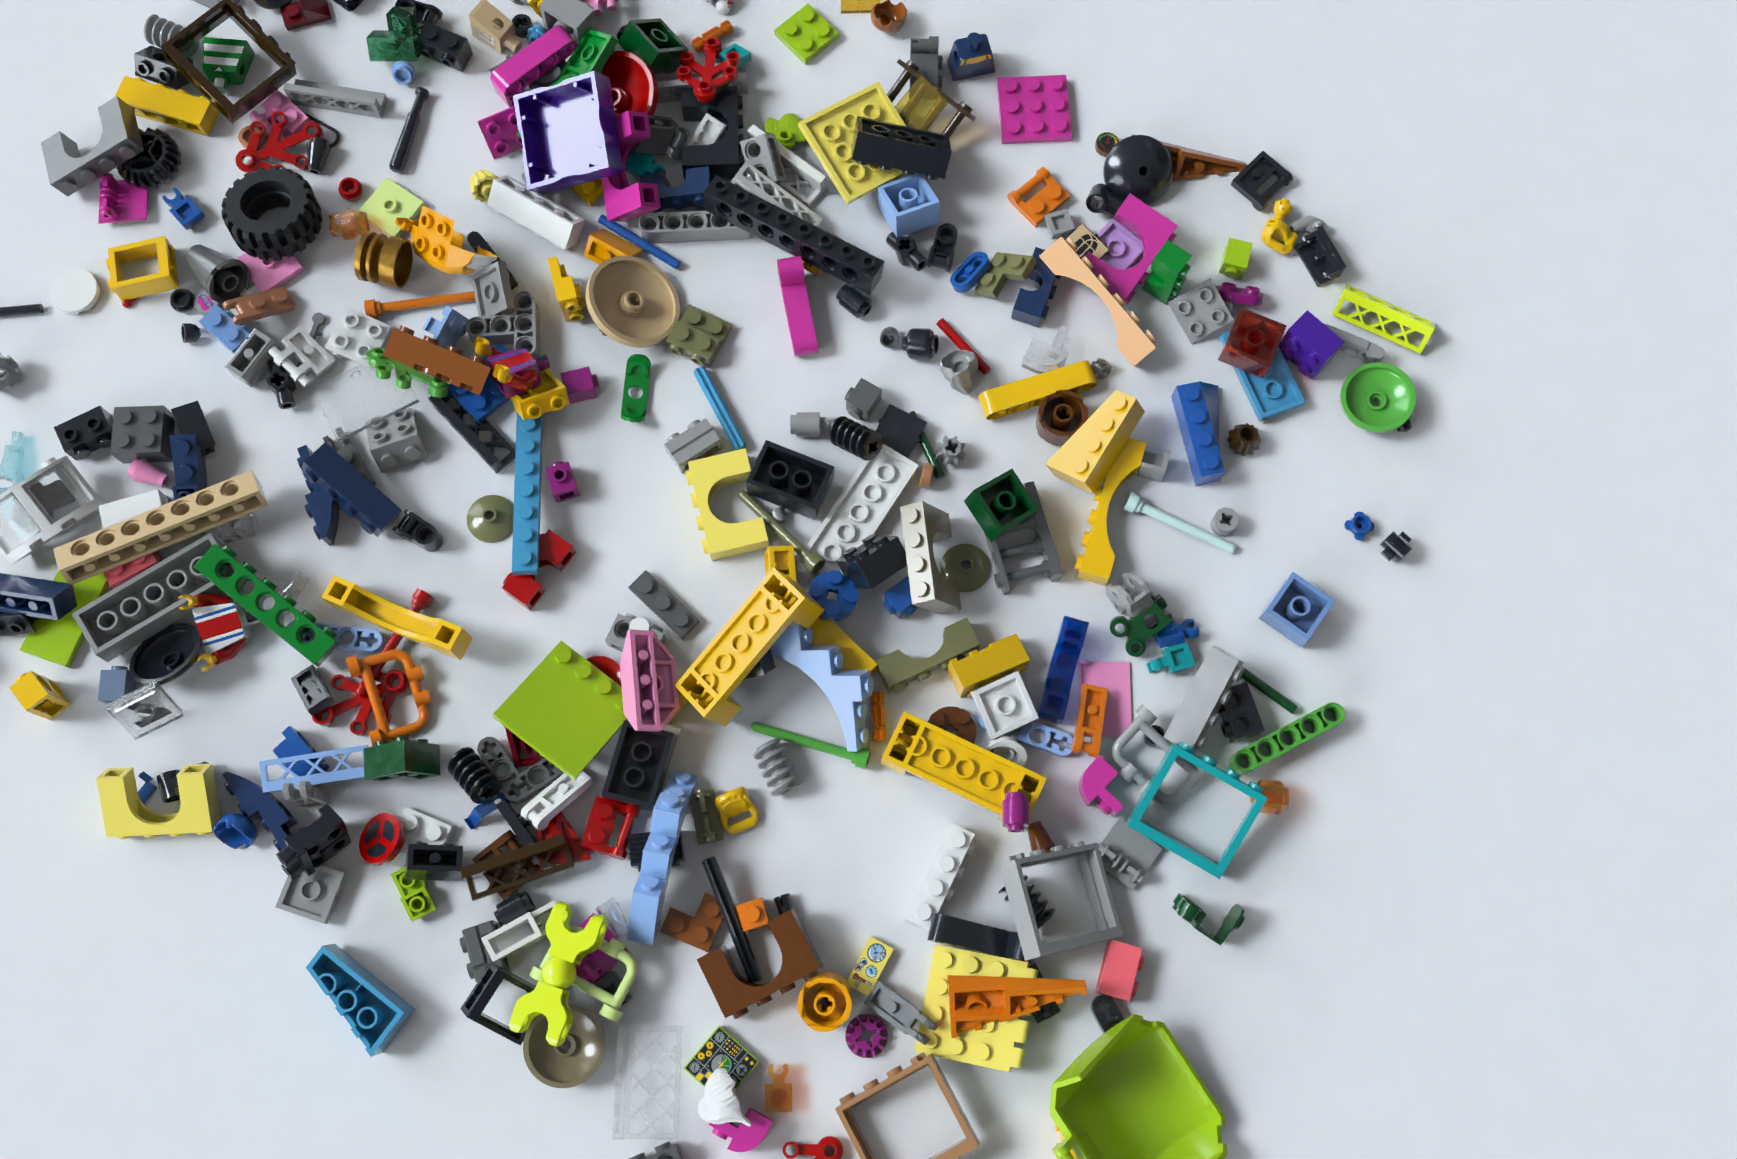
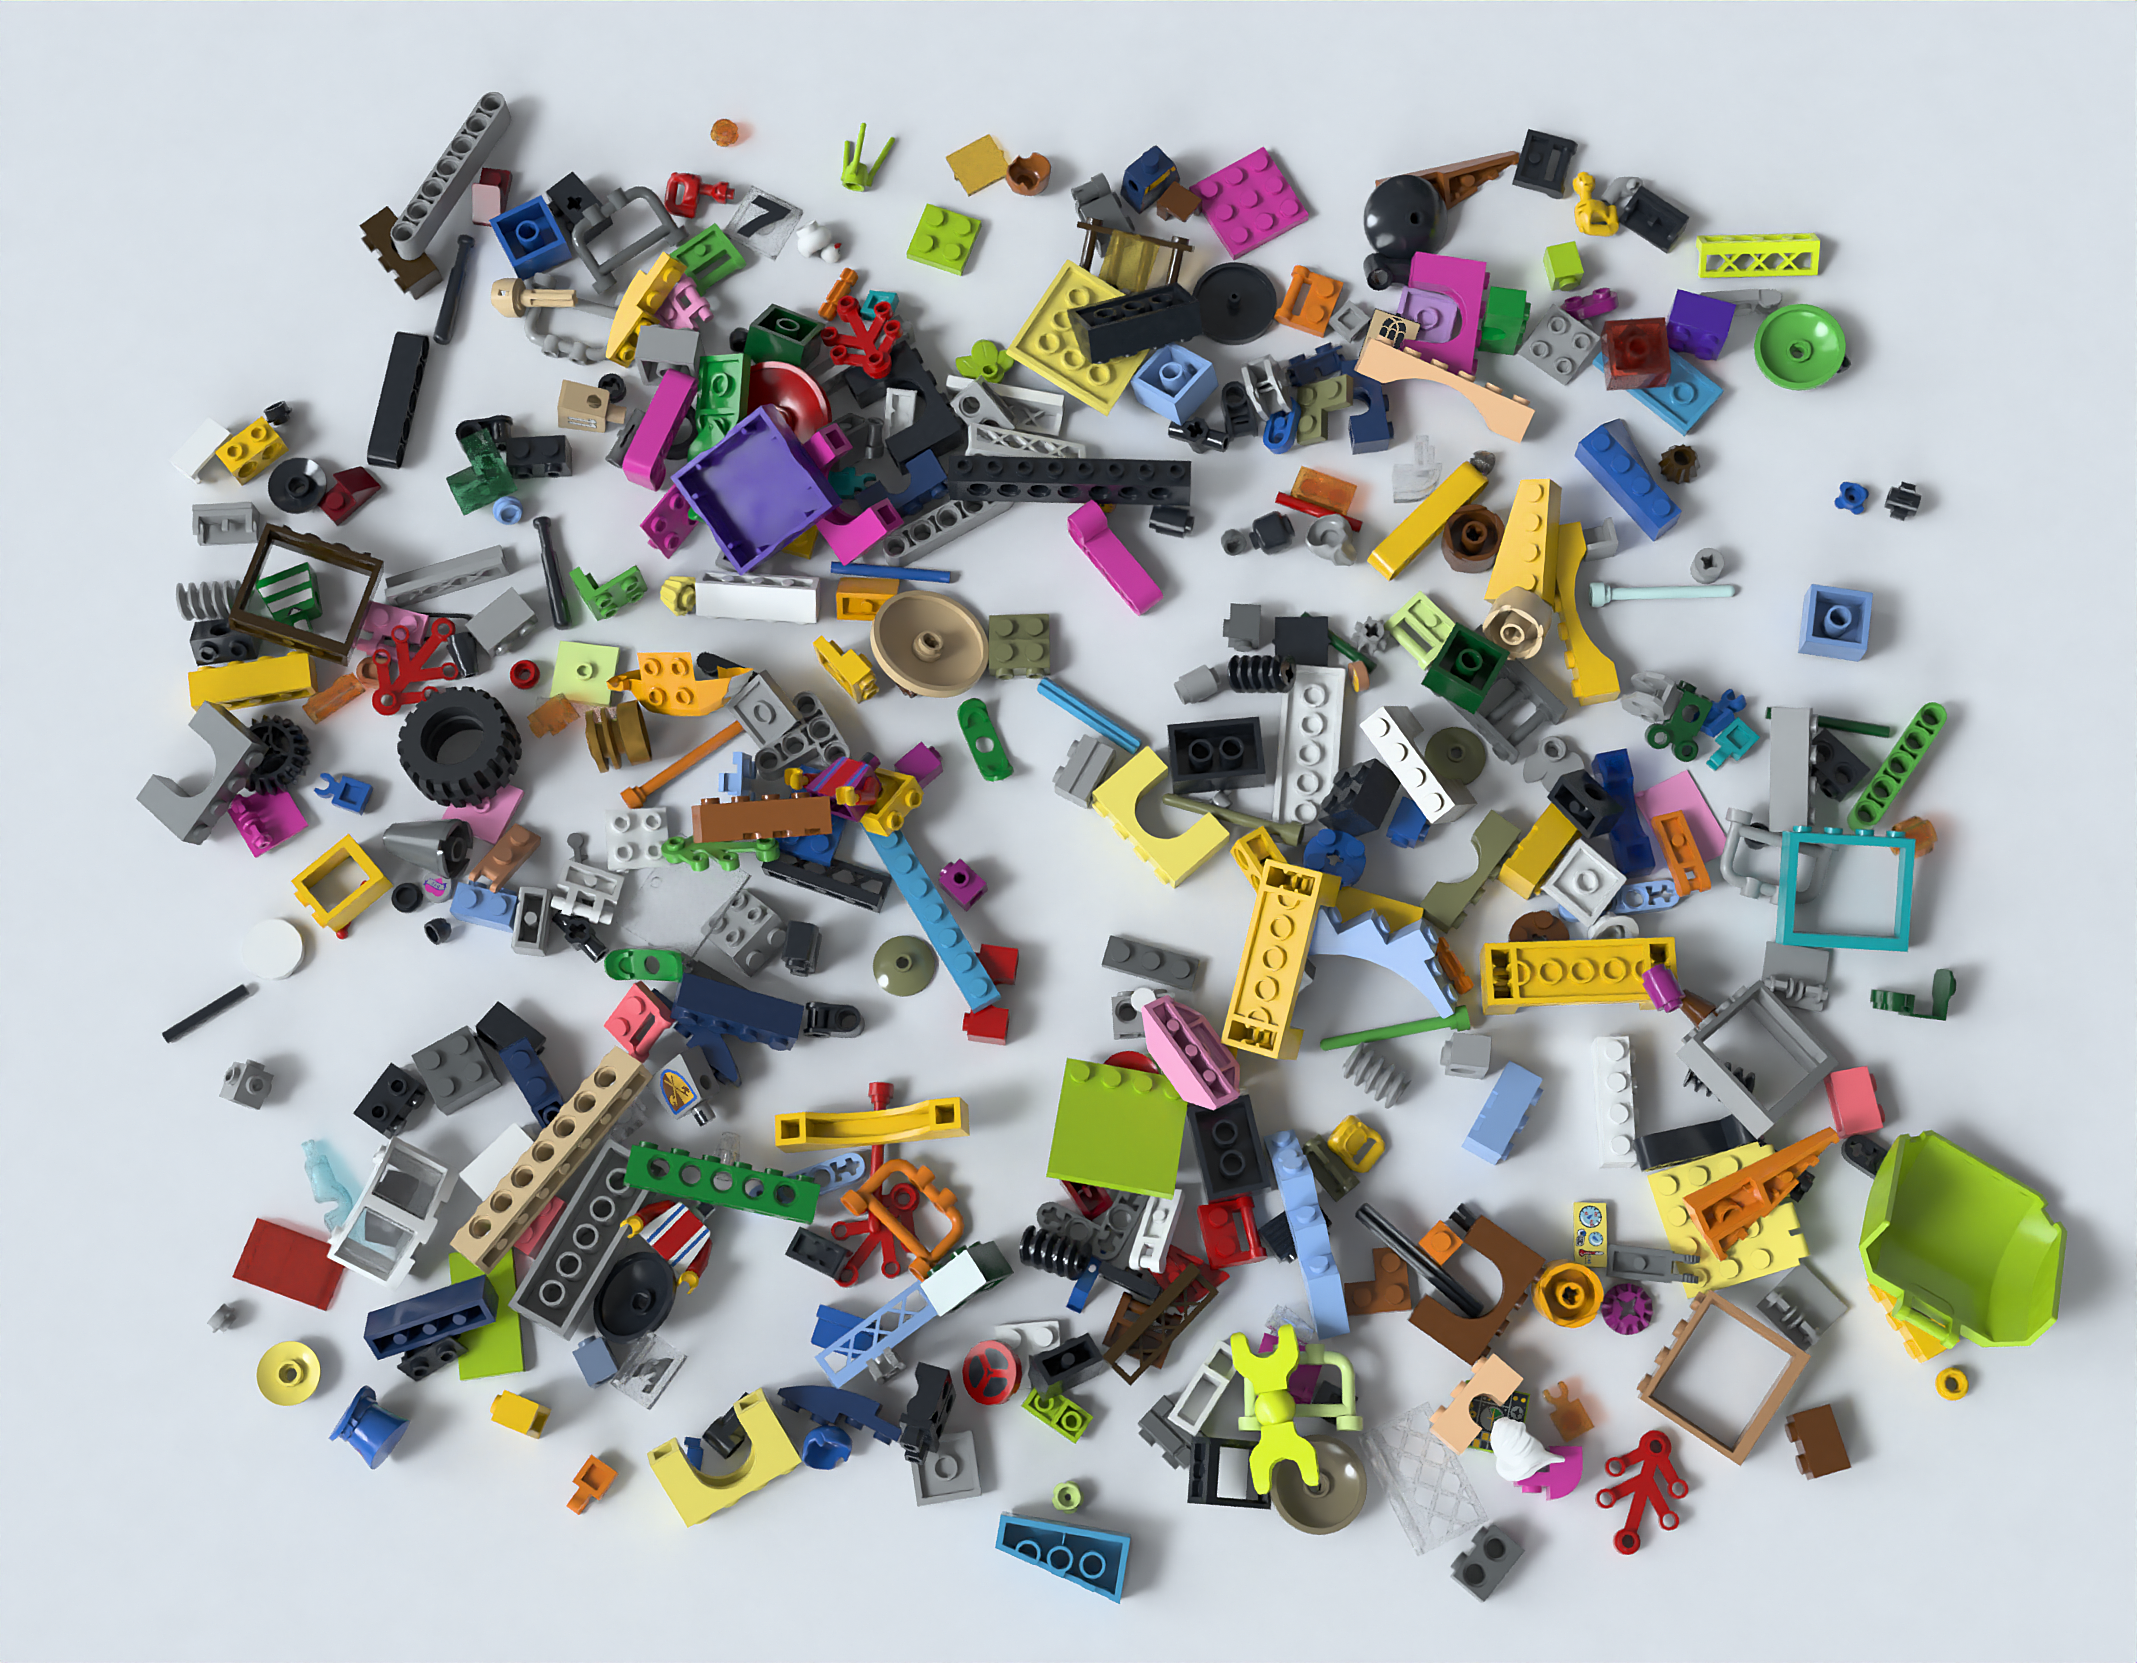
camera: 20 degrees left, 0 degrees up
(64, 770) = (593, 1481): none -> orange plate
(147, 473) = (487, 1111): bright pink cone -> none
(213, 141) = (326, 703): none -> clear orange plate
(283, 455) = (633, 1015): none -> coral plate
(288, 524) = (686, 1086): none -> light grey torso
(304, 421) = (631, 964): none -> green piece
(354, 146) = (502, 623): none -> light grey brick
(378, 957) = (1071, 1505): none -> yellowish green plate
(422, 468) = (801, 948): none -> black brick
(435, 161) = (608, 598): none -> bright green bracket
(514, 907) = (1178, 1372): black brick -> none
(535, 32) = (638, 391): dark azure plate -> none
(688, 1053) = (1491, 1379): none -> light nougat arch
(848, 786) = (1466, 1055): none -> light grey brick
(854, 843) = (1503, 1113): none -> light blue wedge
(971, 238) = (1267, 386): none -> light grey hinge
(974, 332) = (1323, 490): none -> clear orange plate
(982, 84) = (1179, 203): none -> reddish brown panel
(984, 173) = (1235, 303): none -> black piece
(995, 456) = (1427, 622): none -> yellowish green plate
(997, 1104) = (1802, 1307): none -> light grey hinge
(1008, 240) = (1303, 368): none -> dark blue hinge
(1031, 613) = (1547, 768): none -> light grey plate
(1036, 647) = (1585, 803): none -> black brick
(1058, 492) = (1518, 622): none -> tan brick
(1093, 785) = (1721, 919): dark pink brick -> none
(1105, 142) = (1351, 204): tile -> none

